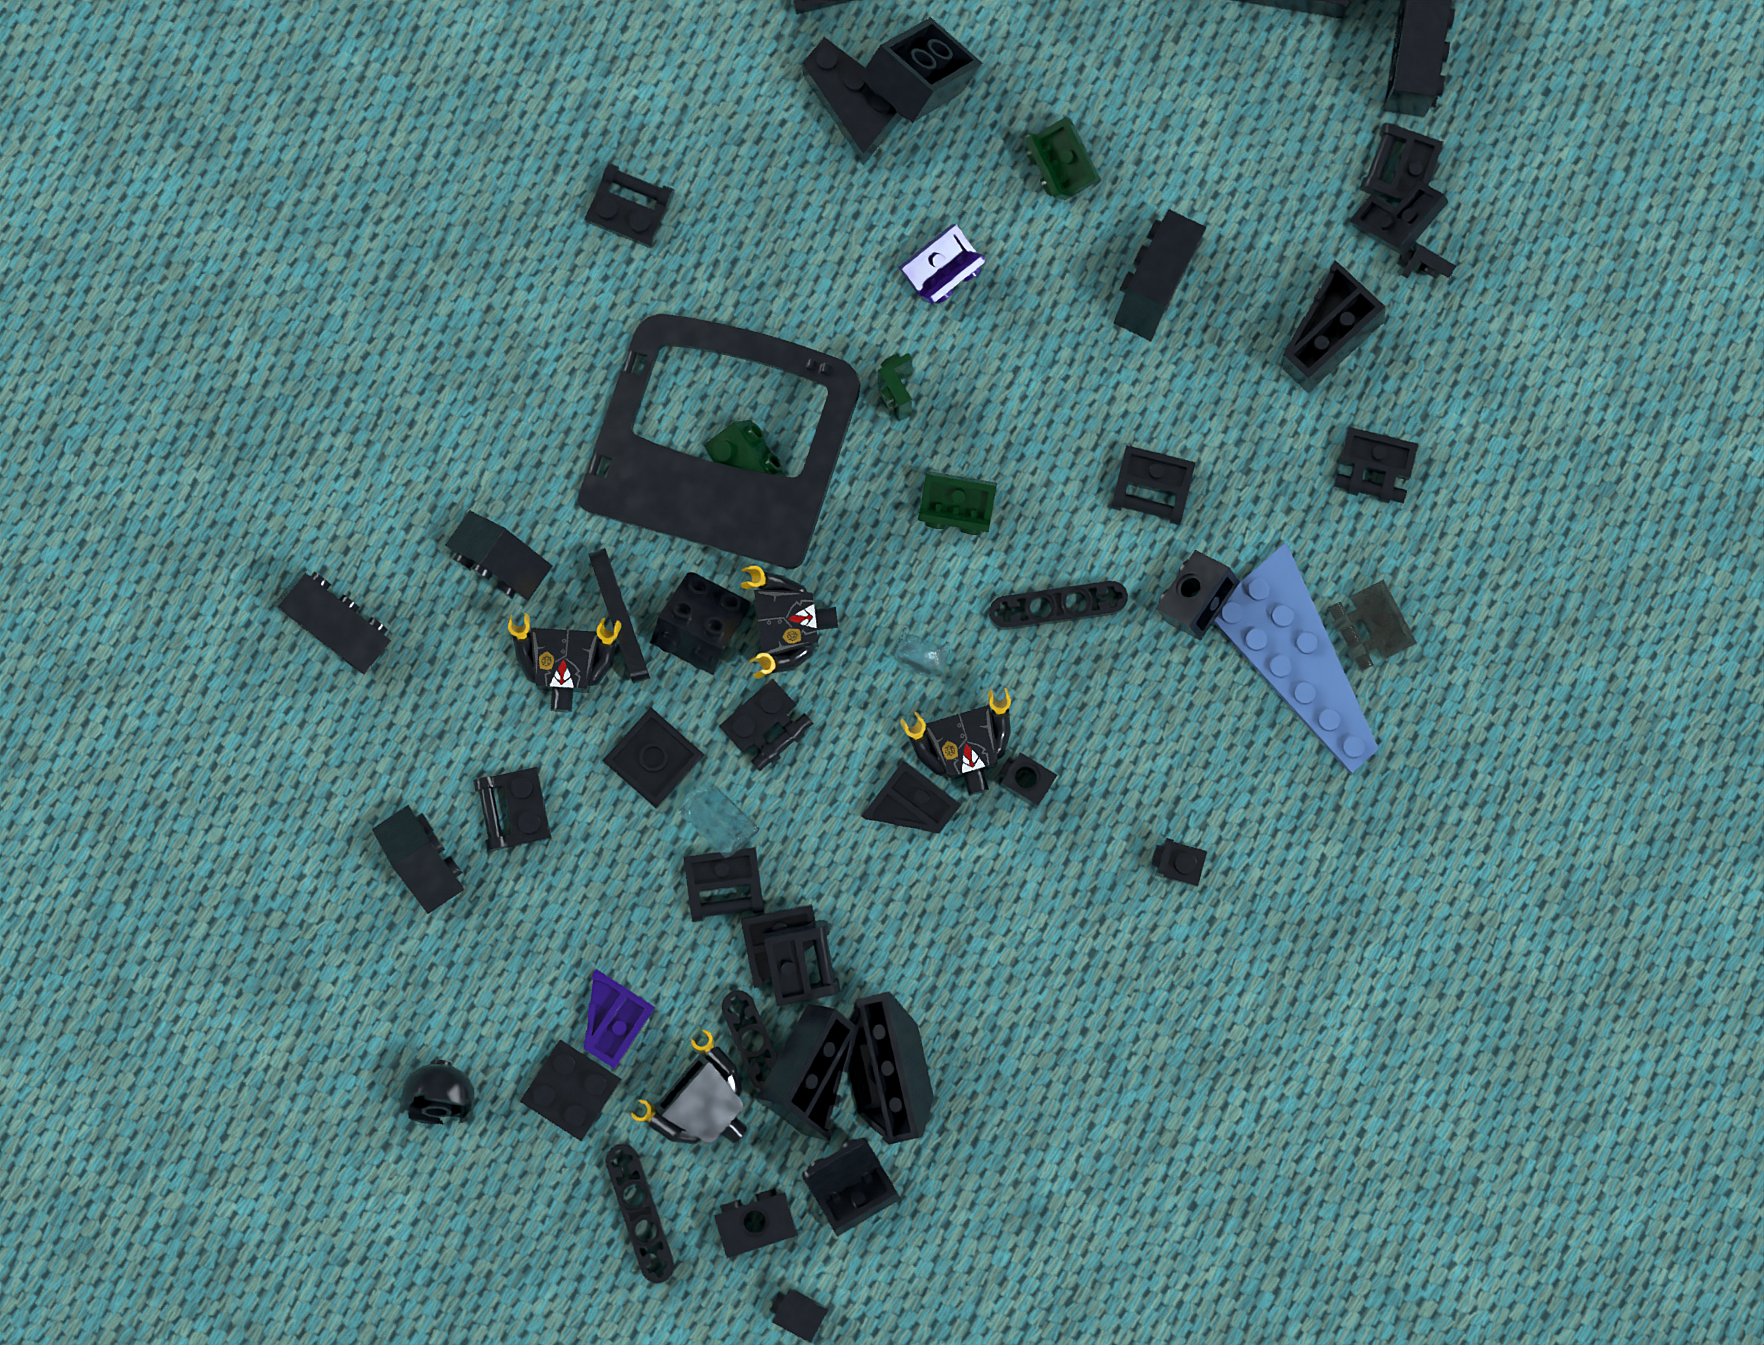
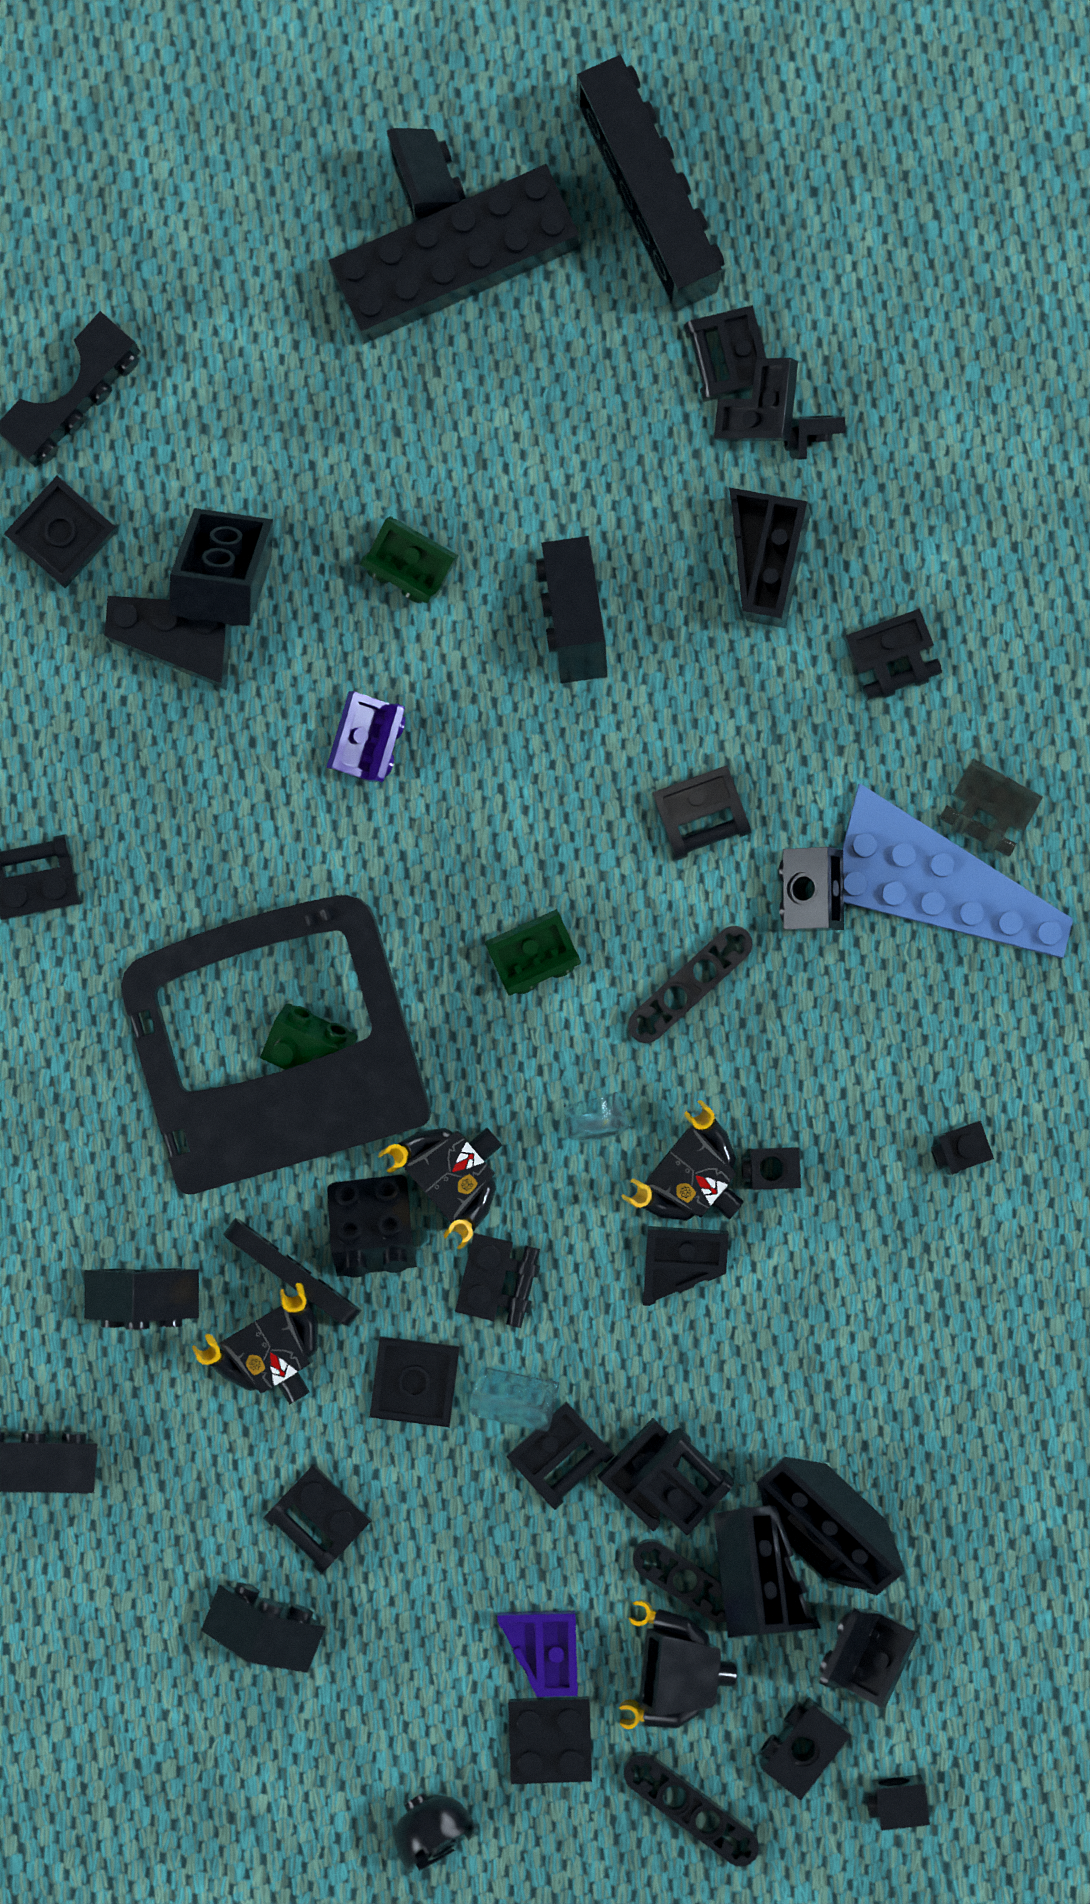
camera: 30 degrees left, 5 degrees up
(893, 393) = (403, 892): dark green bracket -> none

